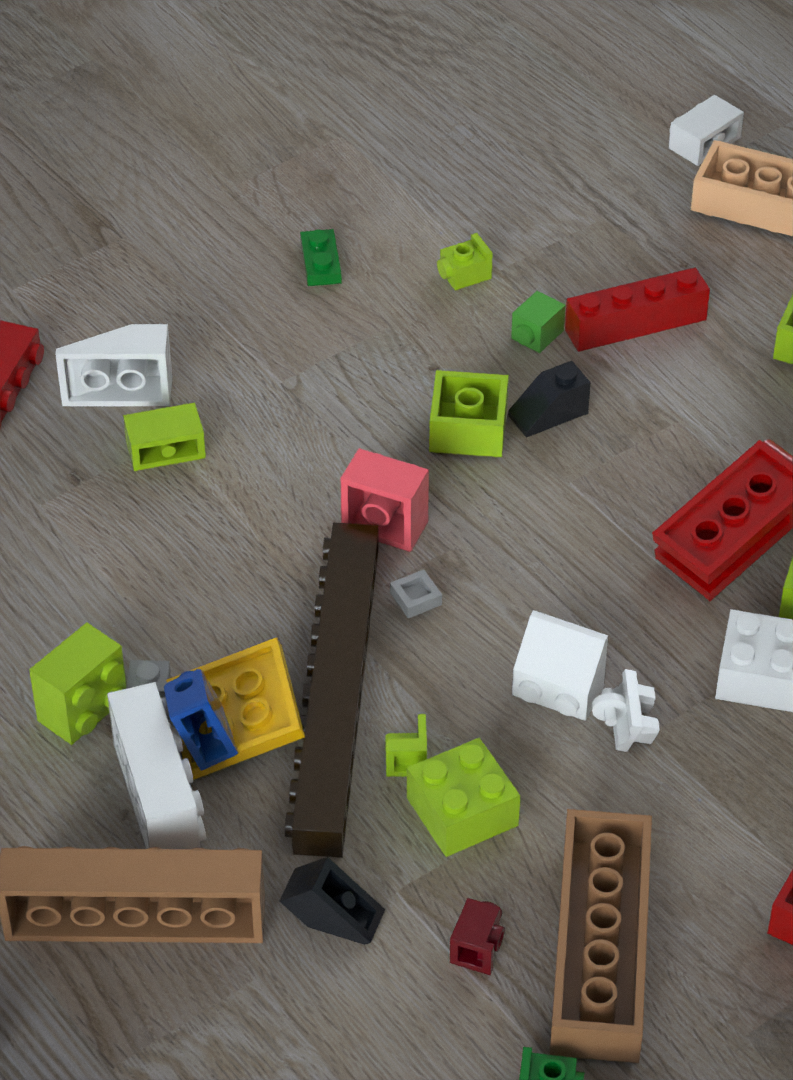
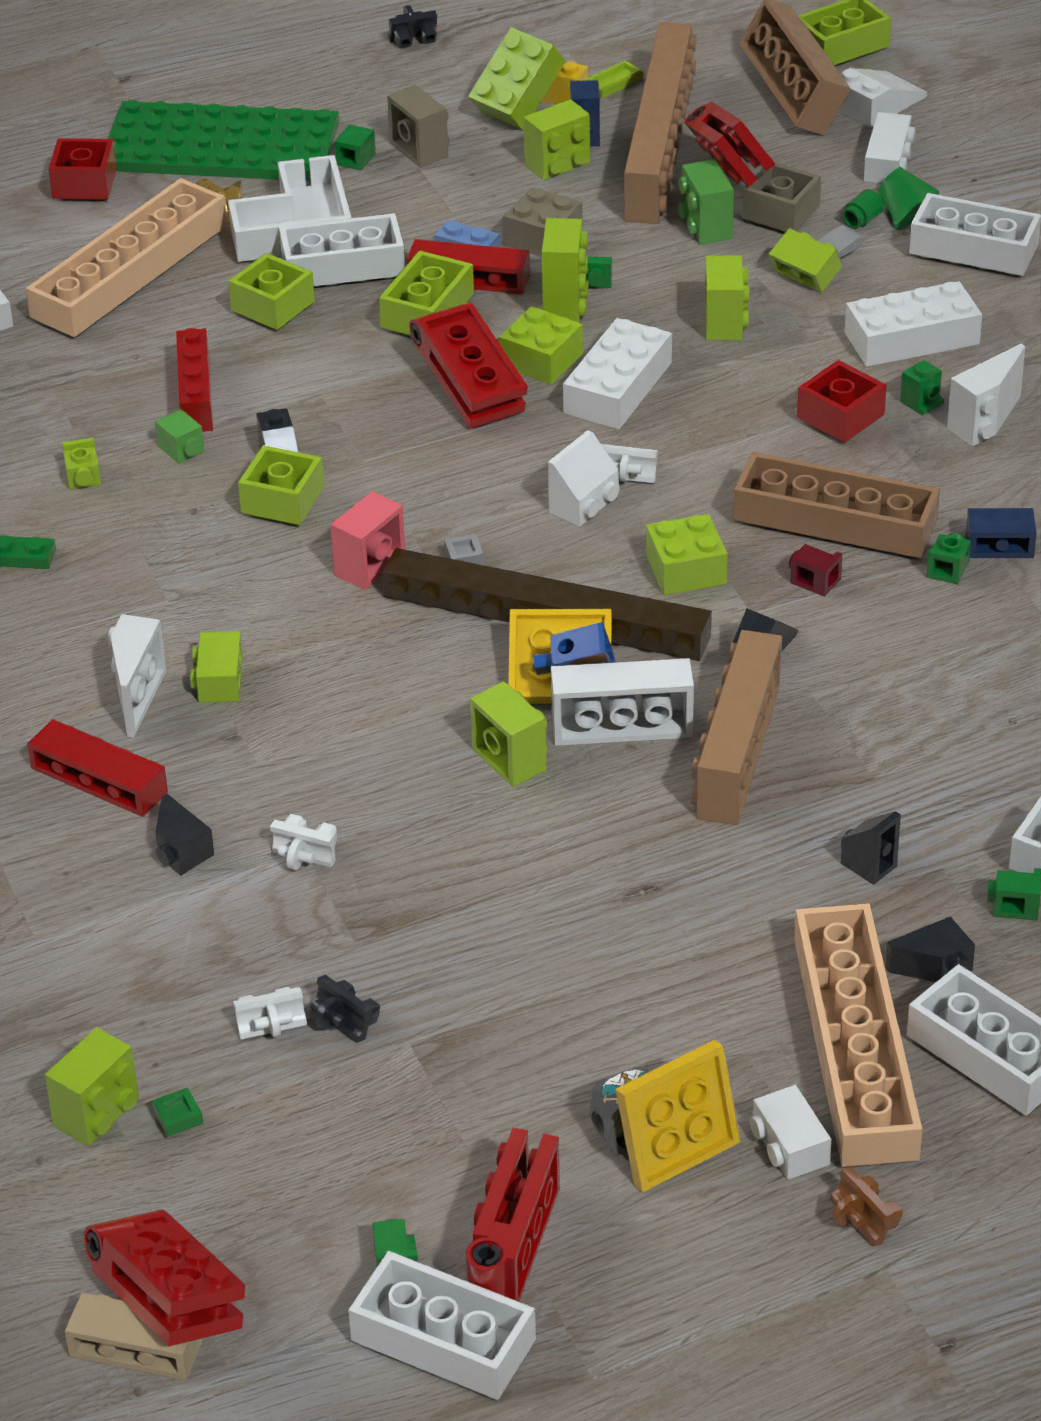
camera: 75 degrees left, 5 degrees down
(405, 749) = (624, 573): lime panel -> none

